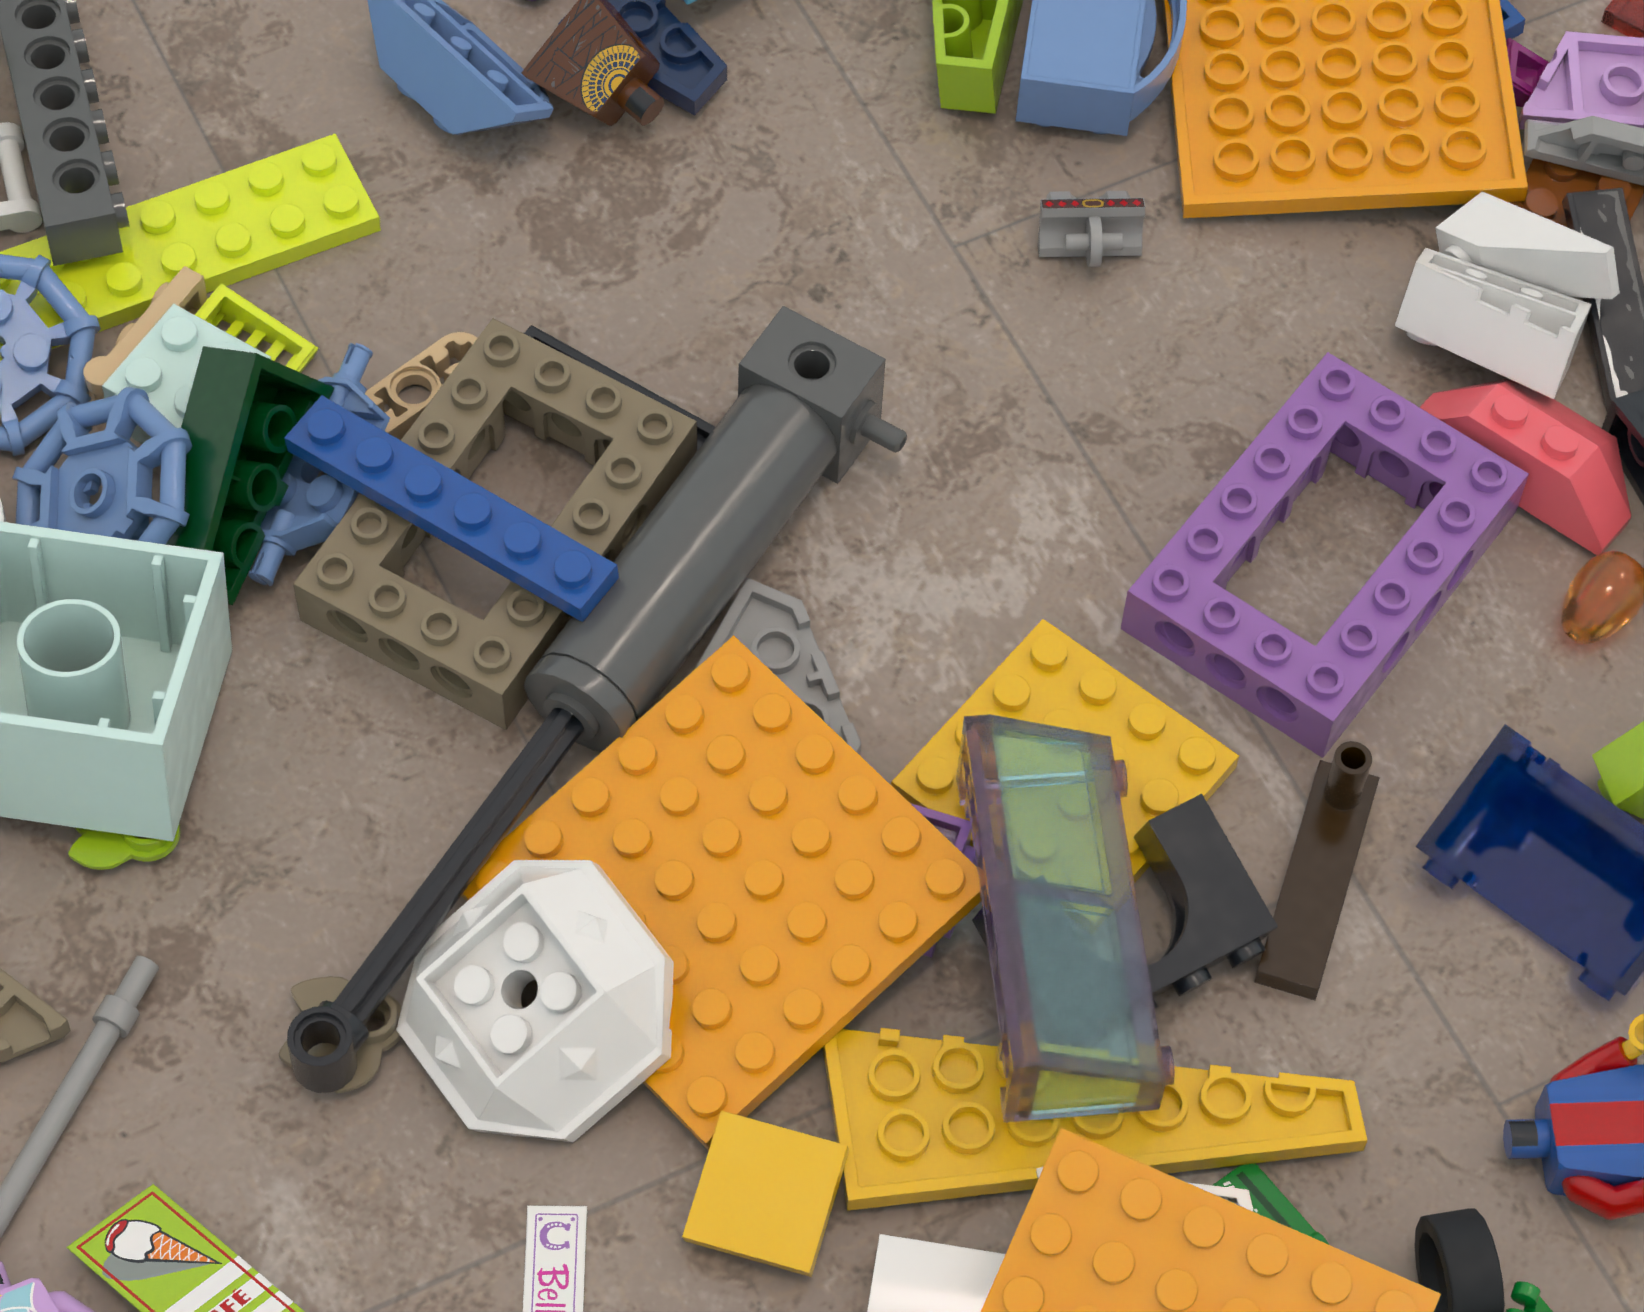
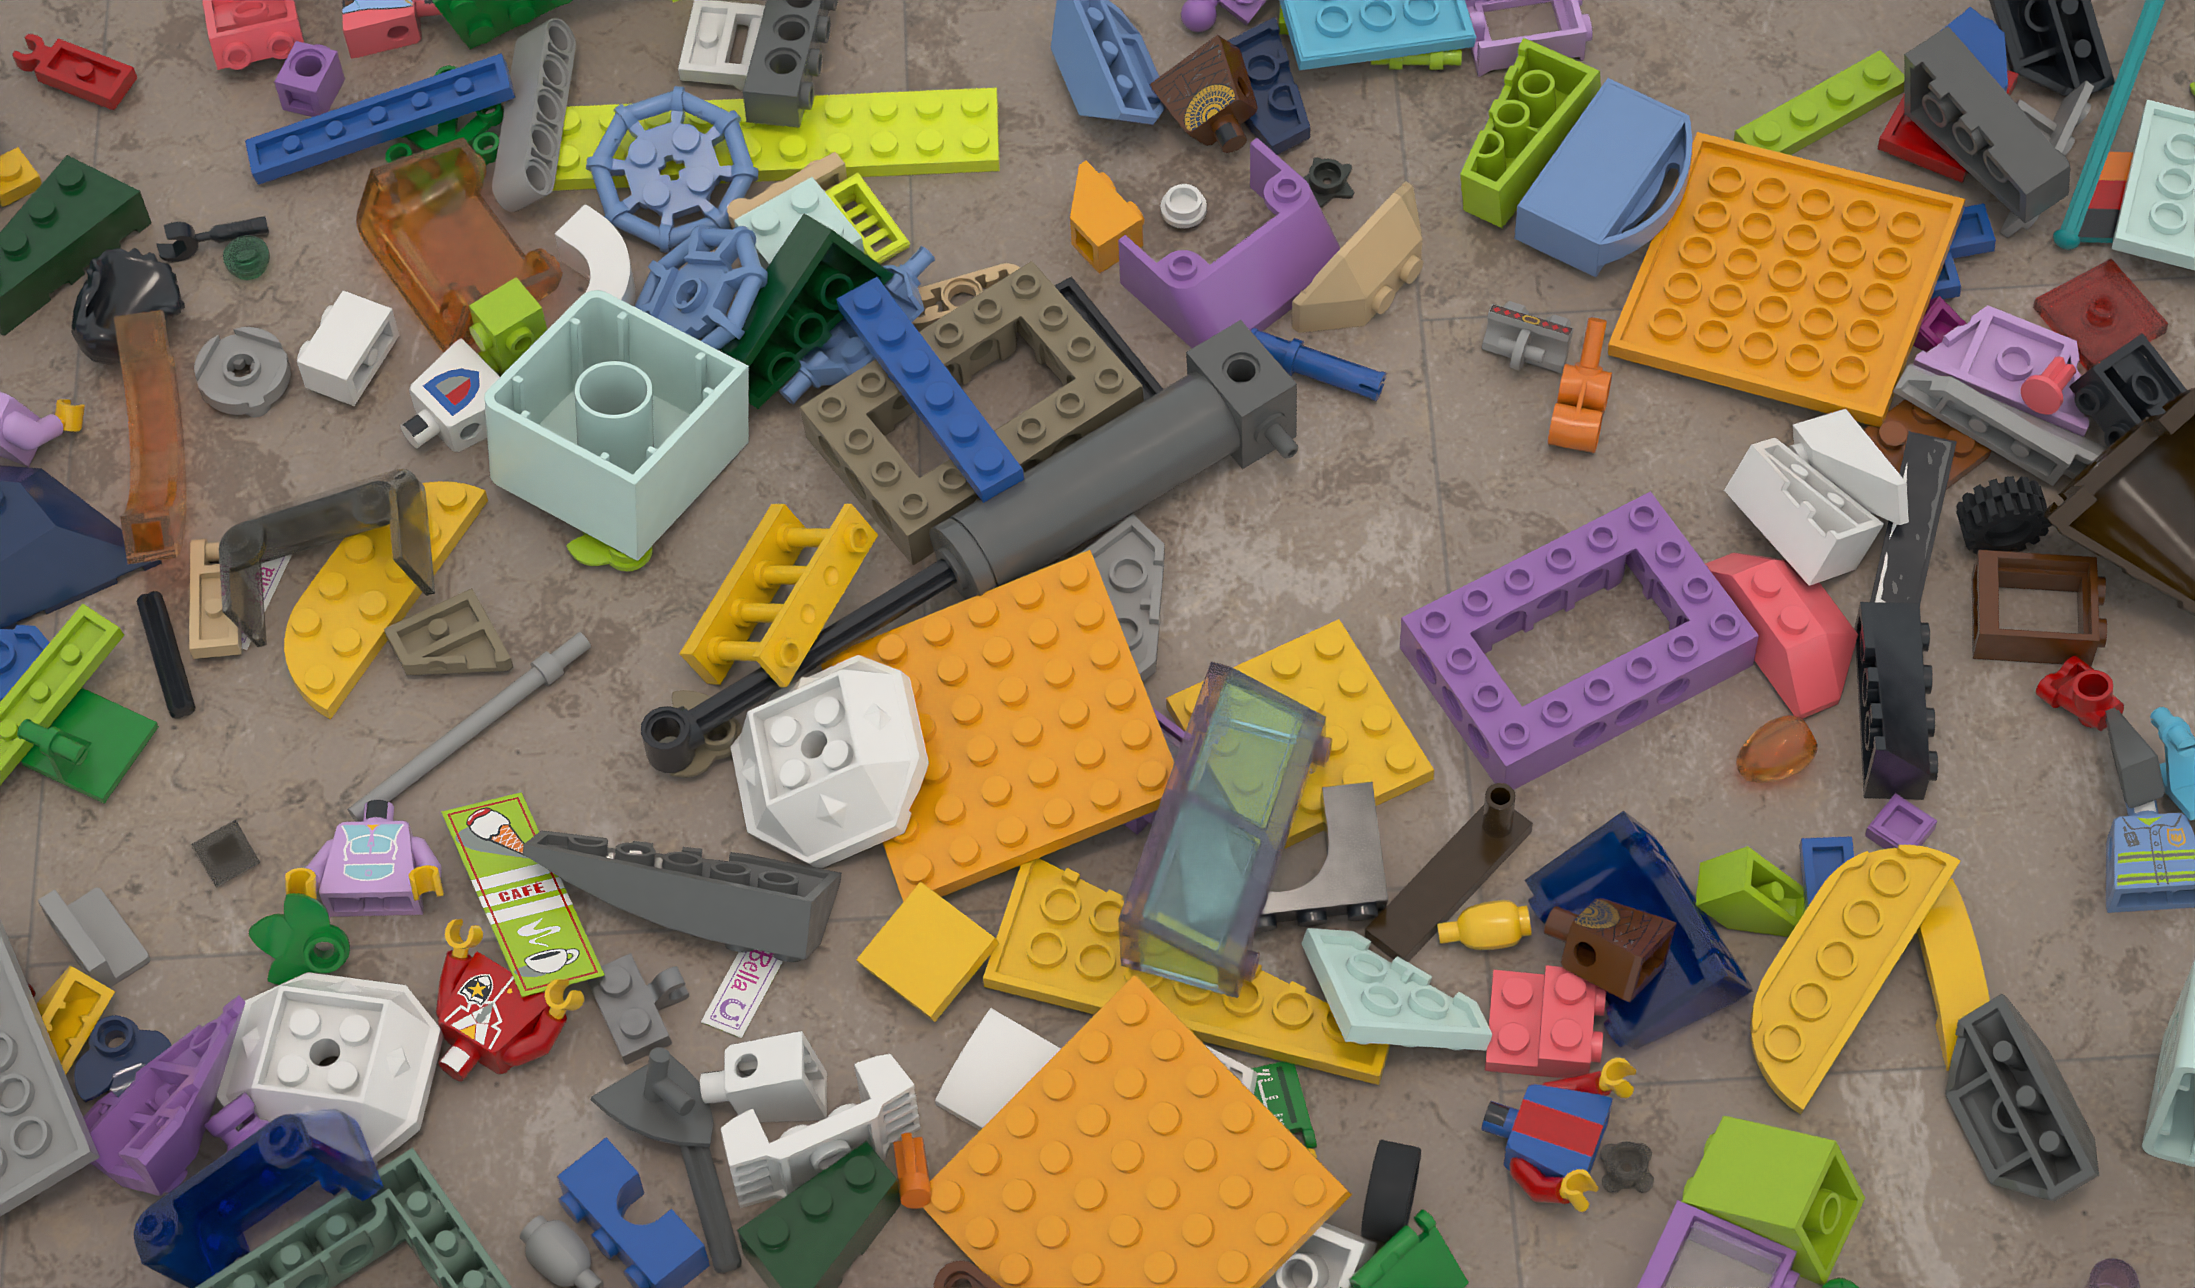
camera: 30 degrees right, 0 degrees up
(330, 811) = (756, 578): none -> yellow fence
(489, 1222) = (734, 902): none -> dark grey wedge
(538, 248) = (1101, 219): none -> light orange slope
(622, 202) = (1183, 206): none -> white plate
(725, 299) = (1251, 279): none -> medium lavender windscreen
(769, 109) = (1329, 170): none -> pearl dark grey plate
(873, 206) = (1365, 270): none -> tan wedge
(893, 334) = (1322, 366): none -> blue pin
(1185, 272) = (1582, 395): none -> orange beam
(1328, 1044) = (1389, 1000): none -> light aqua plate
(1394, 915) = (1488, 926): none -> yellow plant
(1512, 1004) = (1544, 1023): none -> coral plate
(1553, 886) = (1612, 945): none -> reddish brown torso

